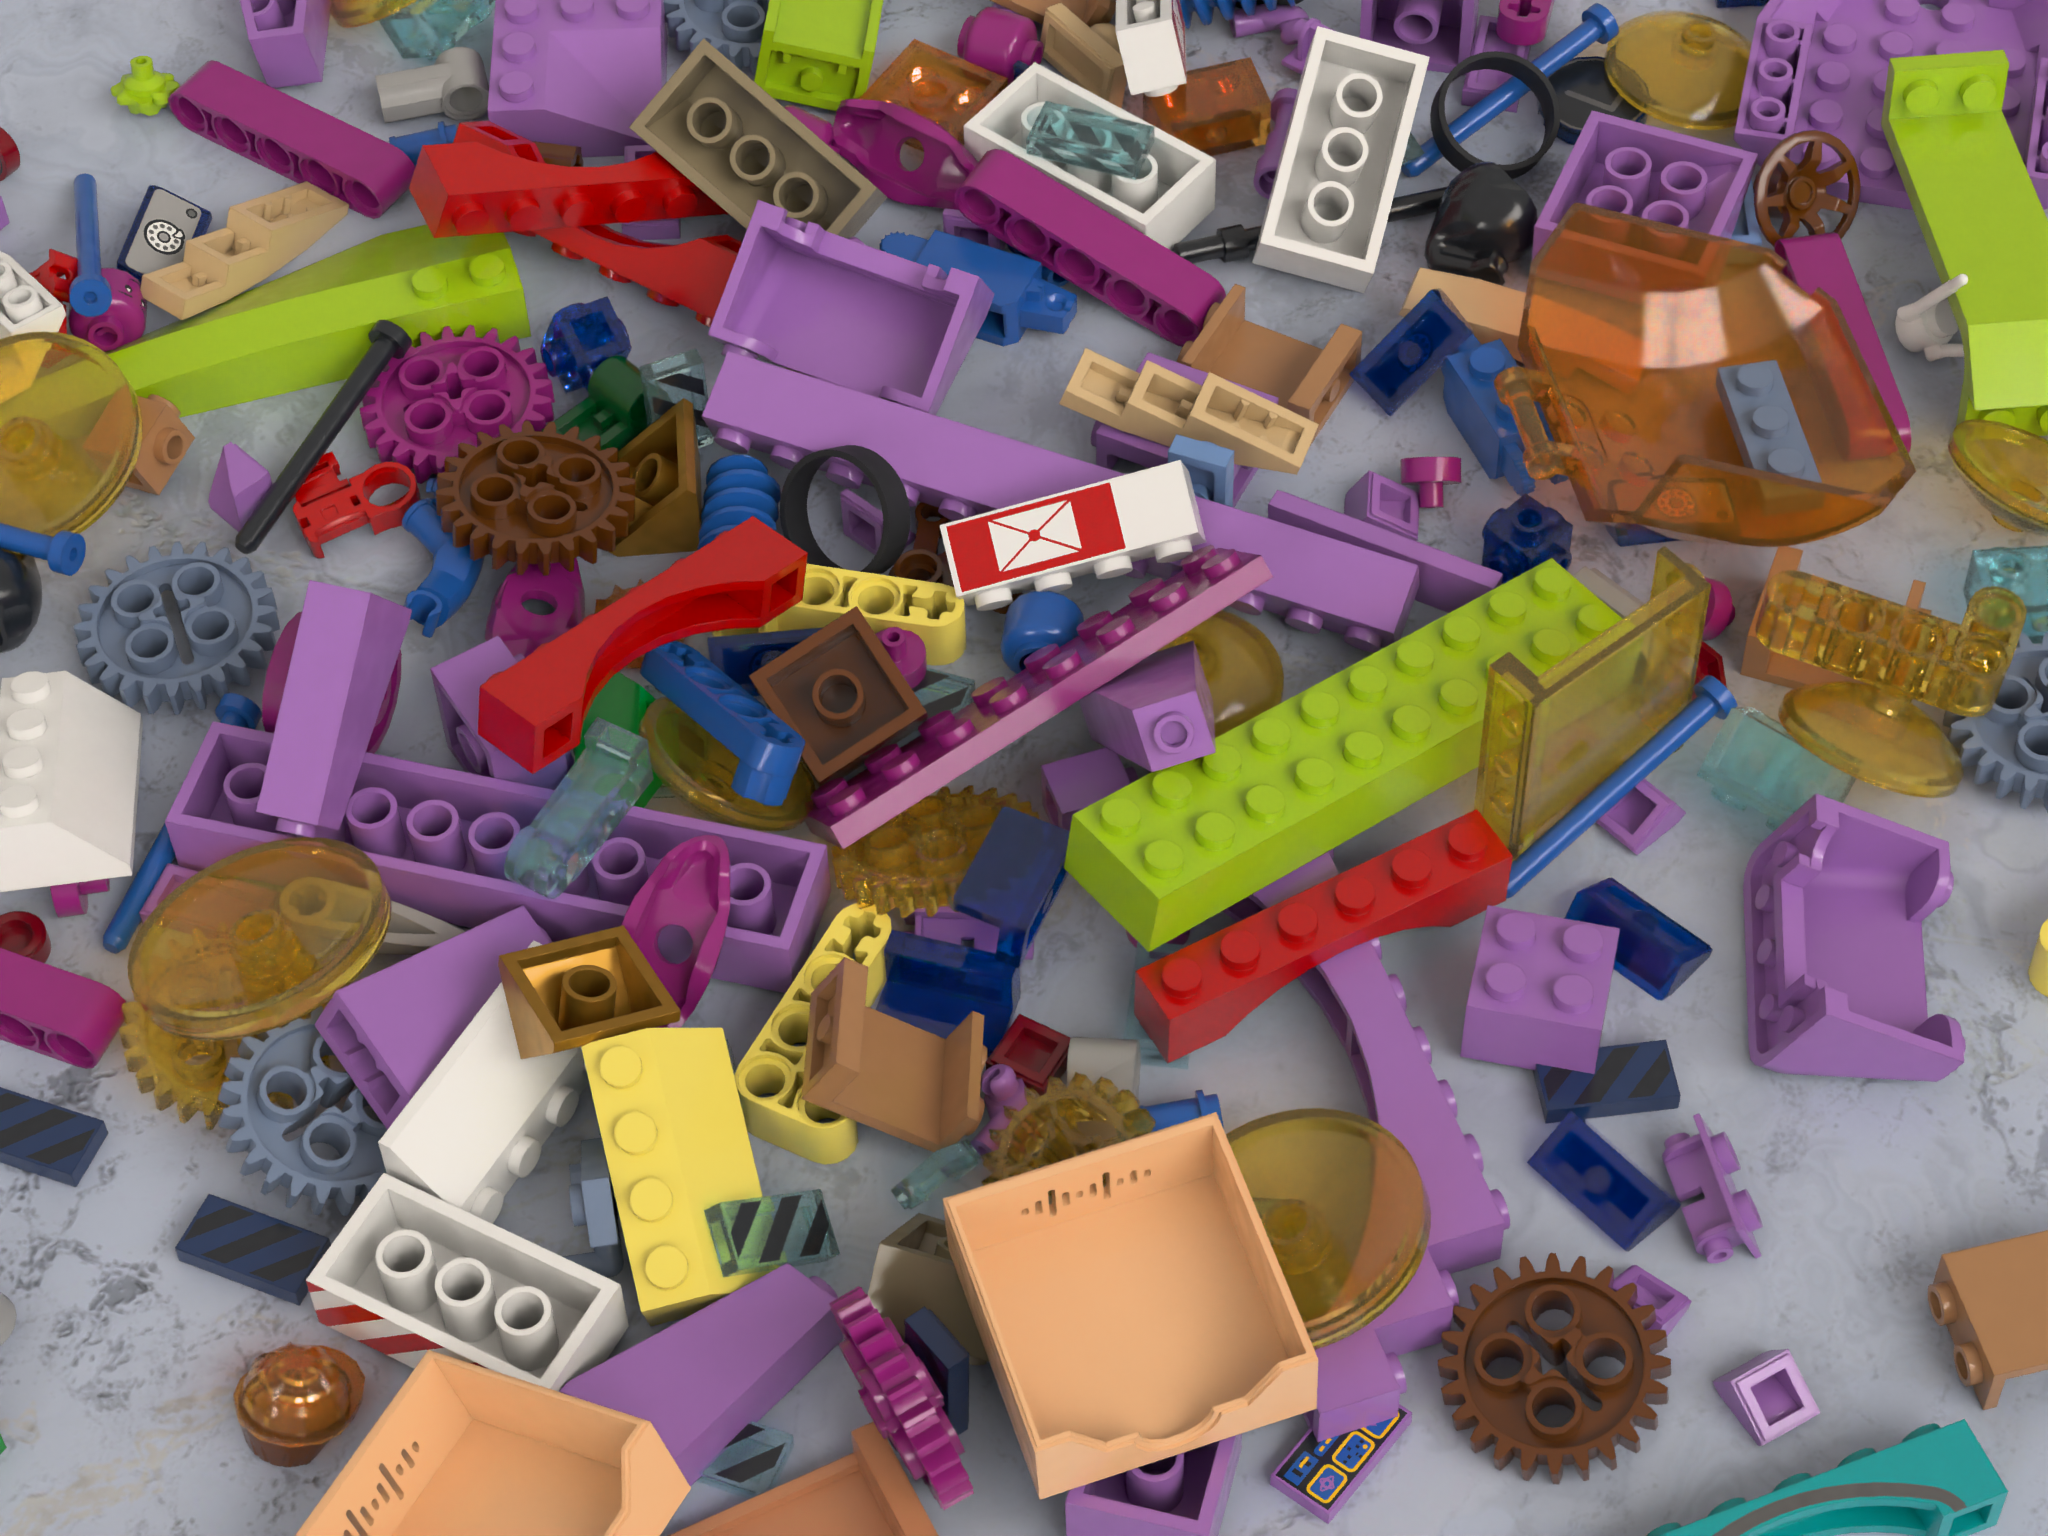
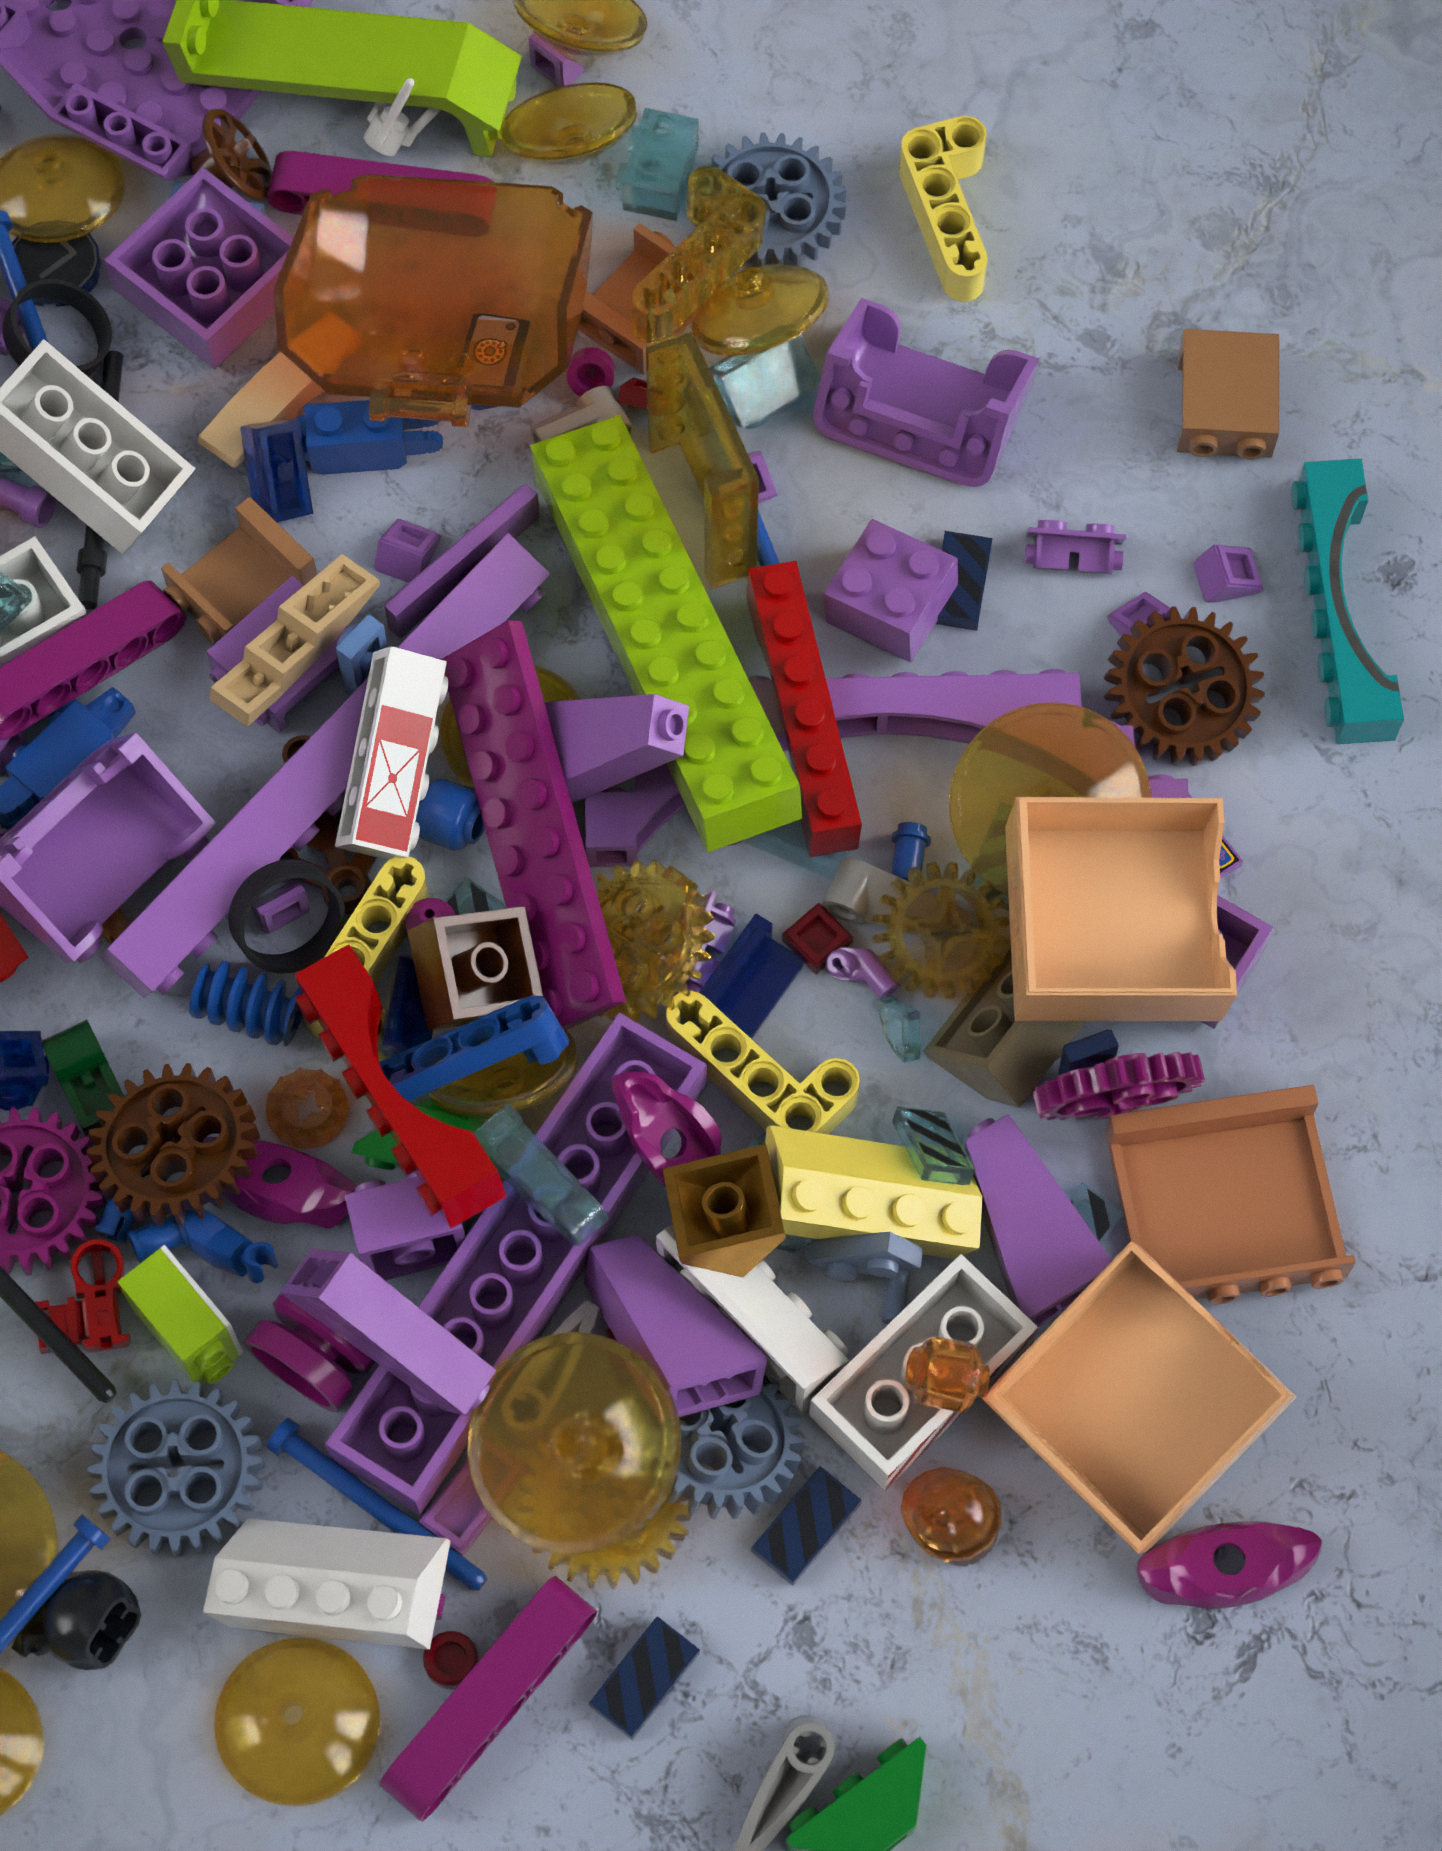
camera: 75 degrees left, 15 degrees up
(237, 486) = (41, 1388): medium lavender slope -> none
(340, 539) = (181, 1317): none -> lime piece
(438, 1290) = (946, 1374): none -> clear orange head
(667, 488) = (176, 1036): pearl gold slope -> none
(670, 381) = (113, 1012): clear light blue tile -> none
(891, 1070) = (819, 1021): medium nougat panel -> none
(1015, 880) = (710, 886): clear blue panel -> none
(1430, 476) = (394, 502): magenta tile -> none
(1481, 225) = (166, 383): black piece -> none
(1525, 538) = (495, 462): clear blue brick -> none
(1603, 1182) = (1040, 610): clear blue slope -> none
(1650, 946) = (838, 523): clear blue slope -> none
(1765, 420) = (464, 267): sand blue plate -> none

